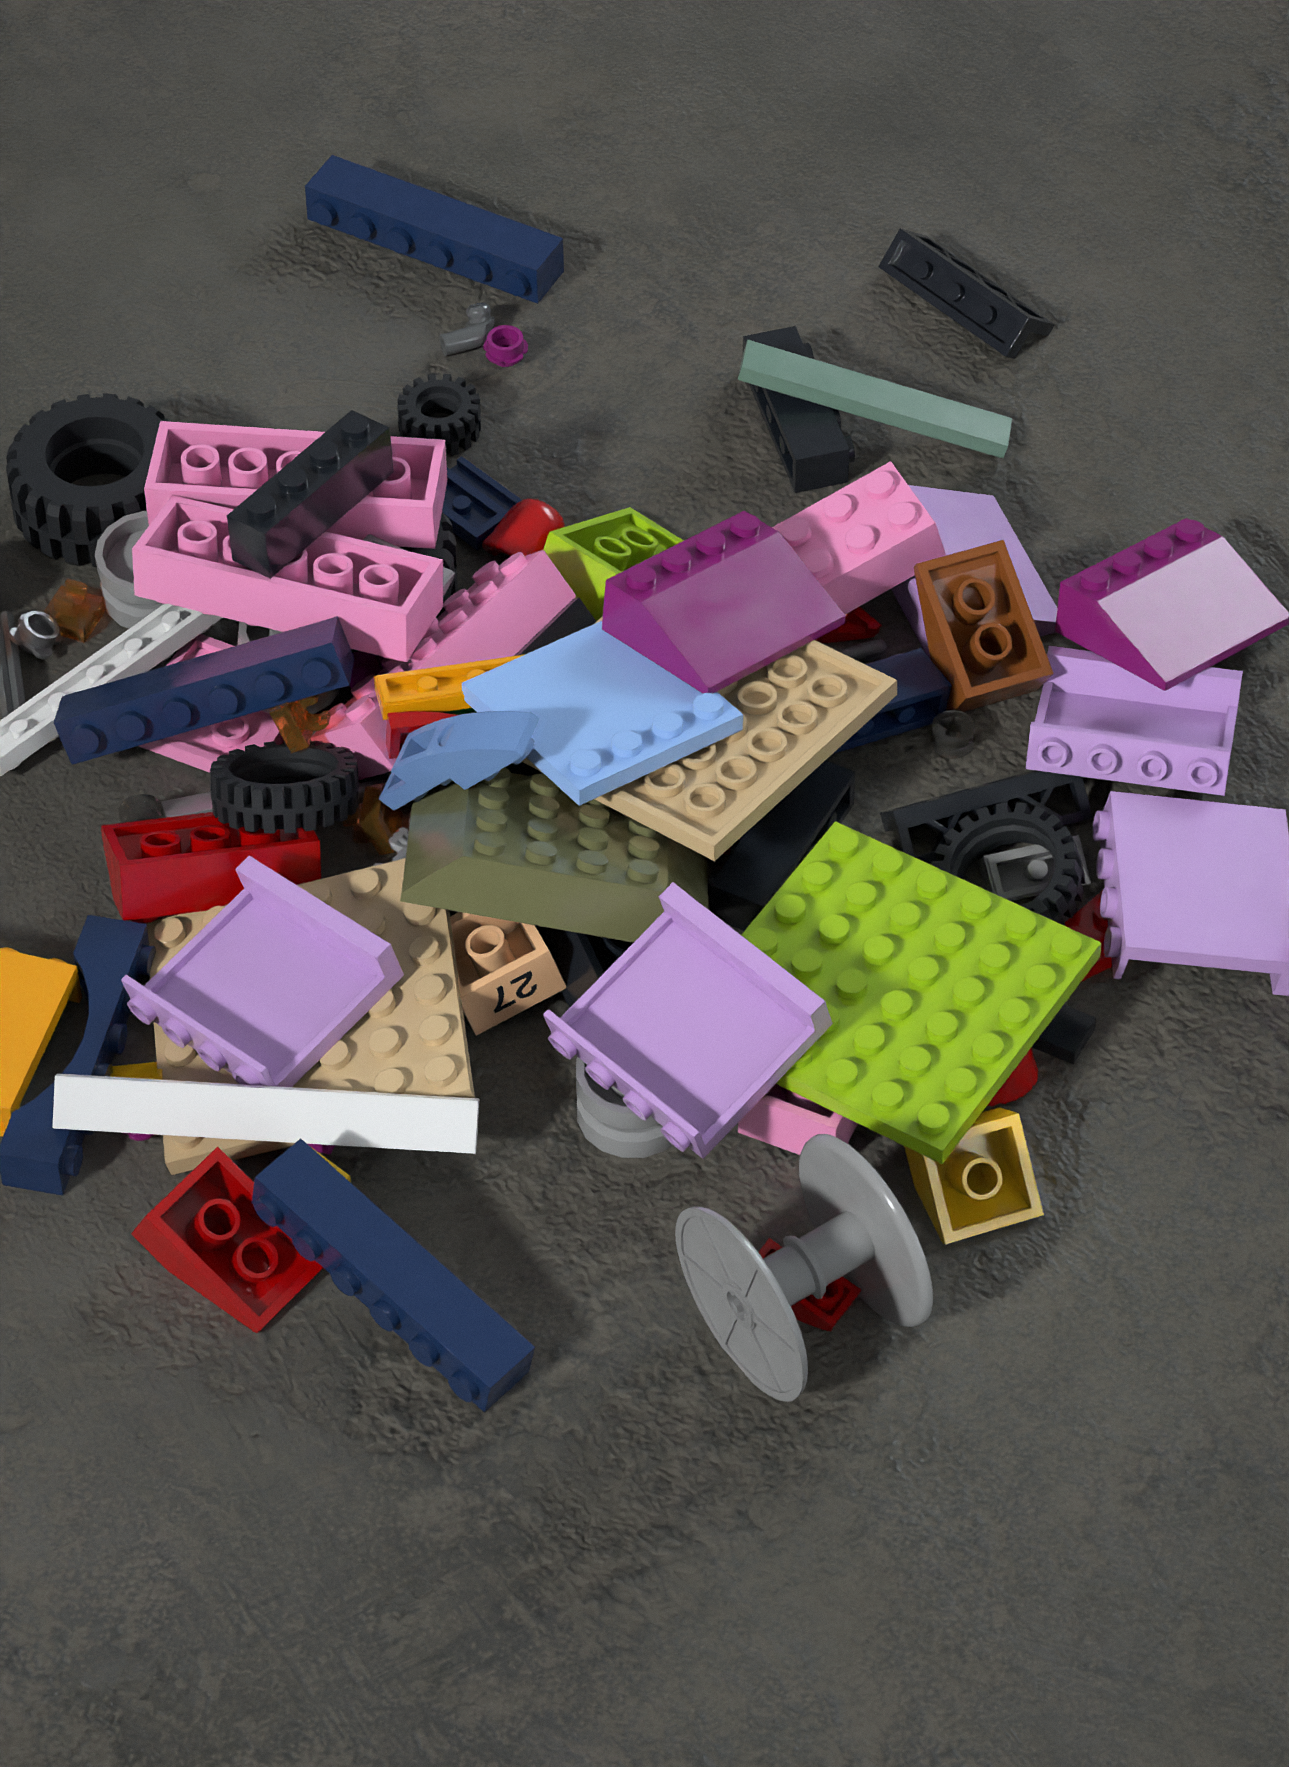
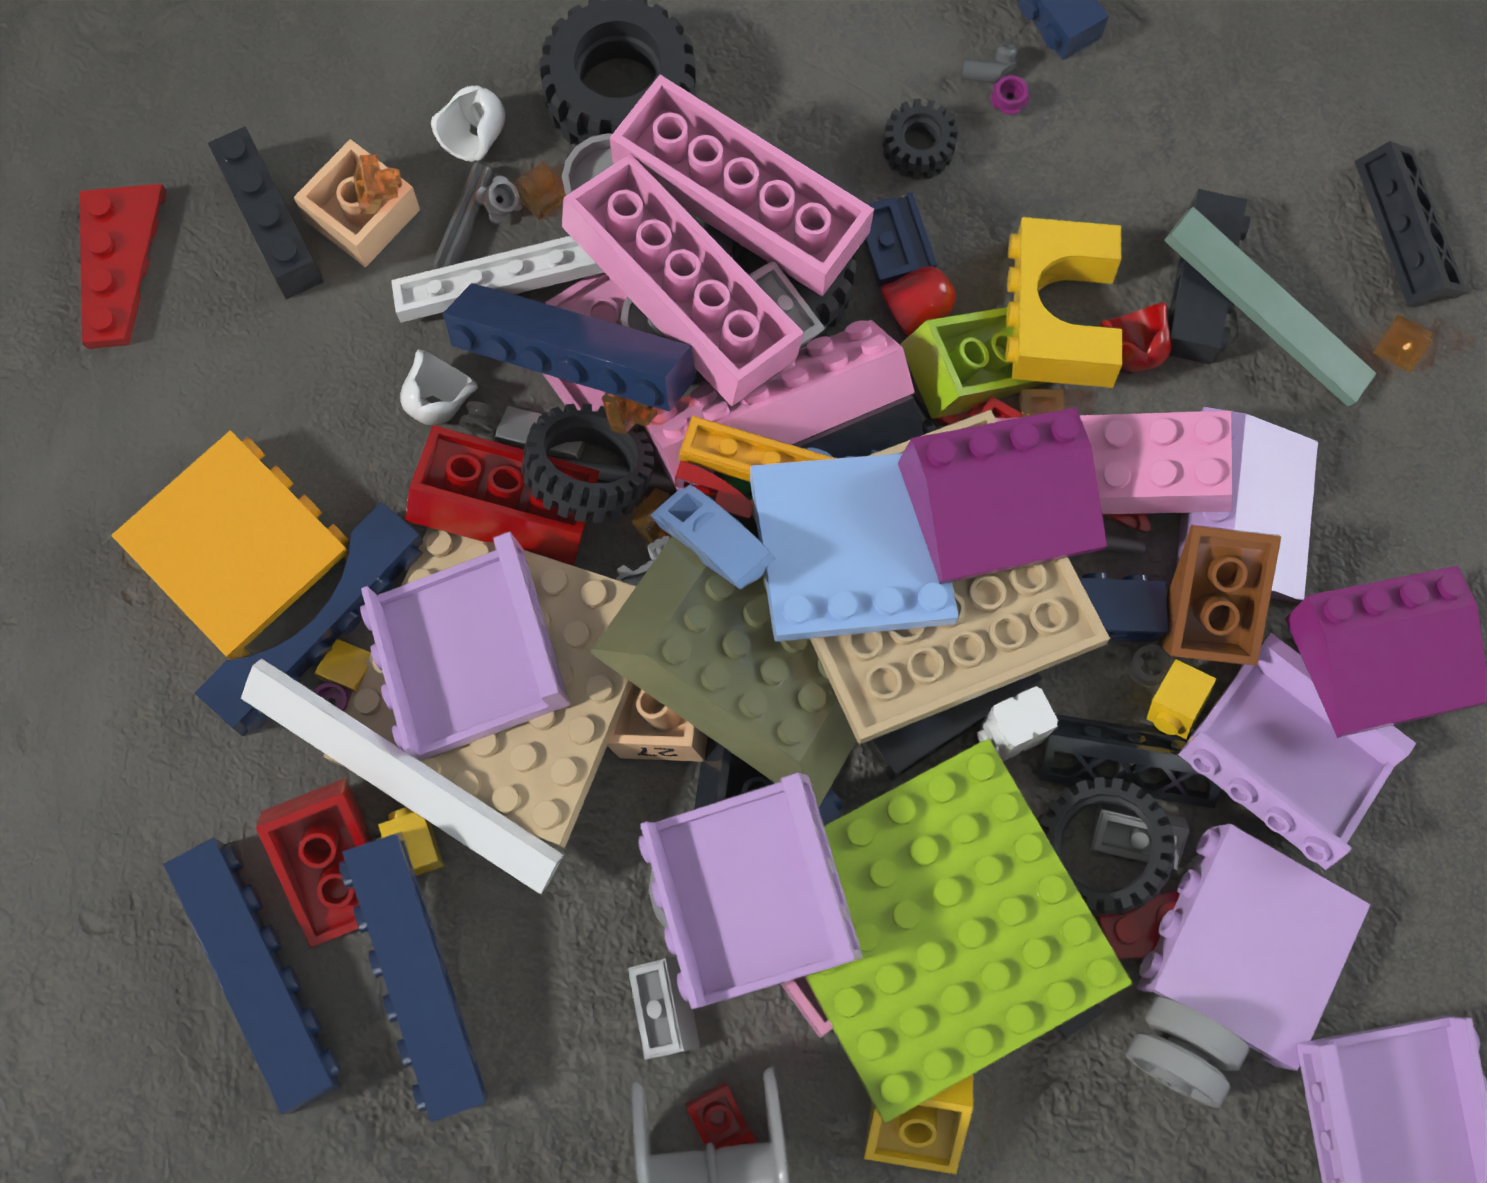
camera: 25 degrees right, 25 degrees up
(74, 818) = (436, 378): none -> white hair
(217, 1370) = (253, 975): none -> dark blue brick
(310, 494) = (724, 222): black brick -> none
(648, 1209) = (662, 1014): none -> light grey slope
(655, 438) = (1041, 343): none -> yellow arch
(769, 482) = (1143, 330): none -> red hair
(860, 800) = (1018, 723): none -> white brick
(999, 737) = (1180, 699): none -> yellow brick
(1021, 382) = (1404, 343): none -> clear orange tile
(1193, 993) = (1187, 1051): none -> light grey wheel

